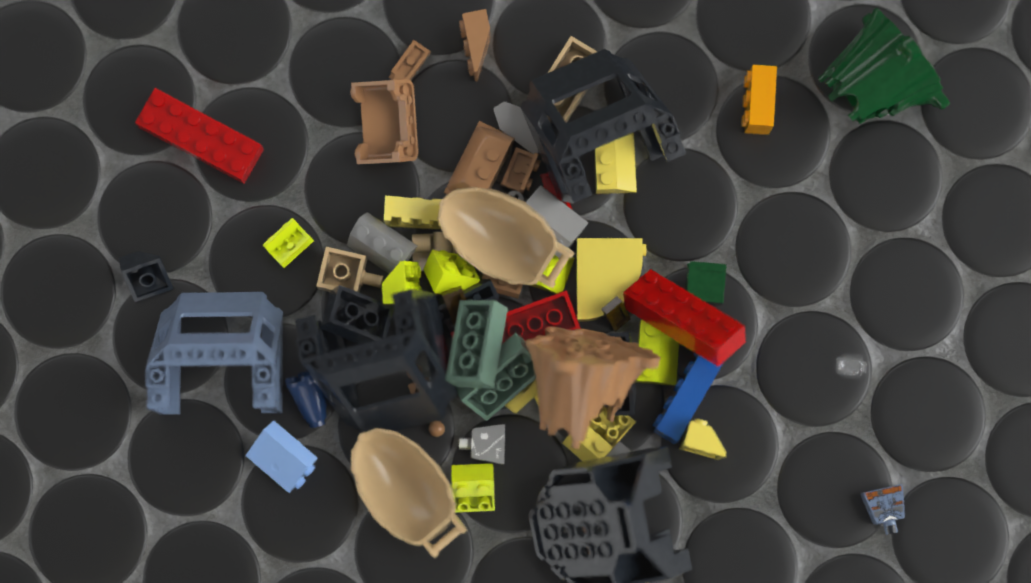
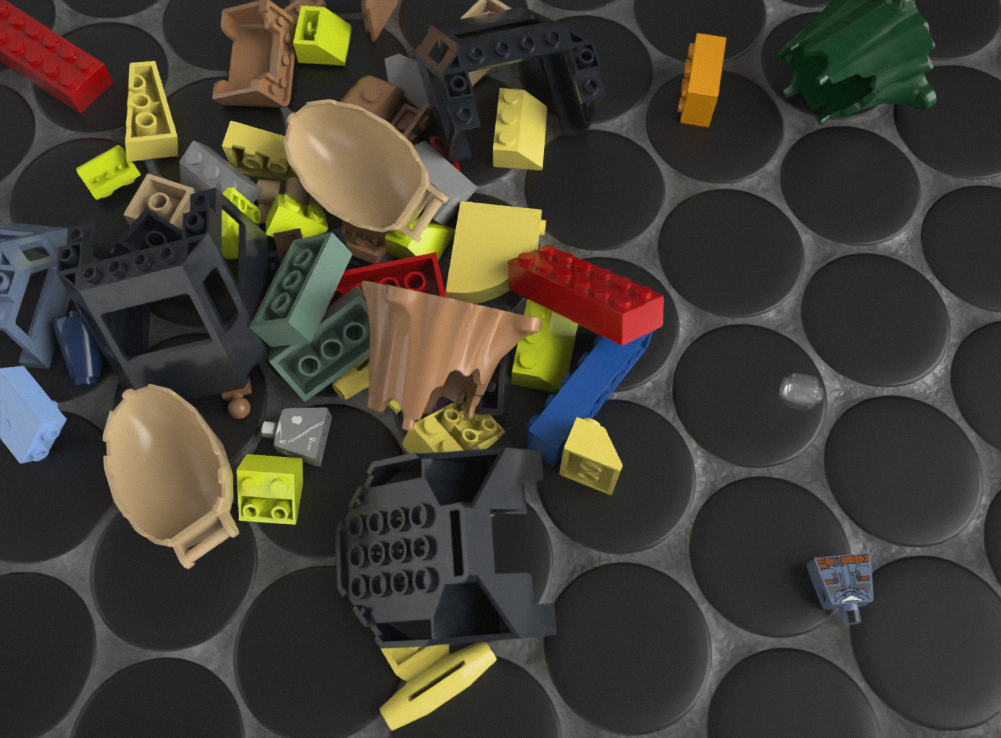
camera: 10 degrees right, 15 degrees down
(309, 188) = (149, 120): none -> light yellow wedge
(436, 90) = (321, 37): none -> neon yellow slope
(616, 313) = (496, 286): dark brown tile -> none
(706, 281) = (619, 256): dark green piece -> none

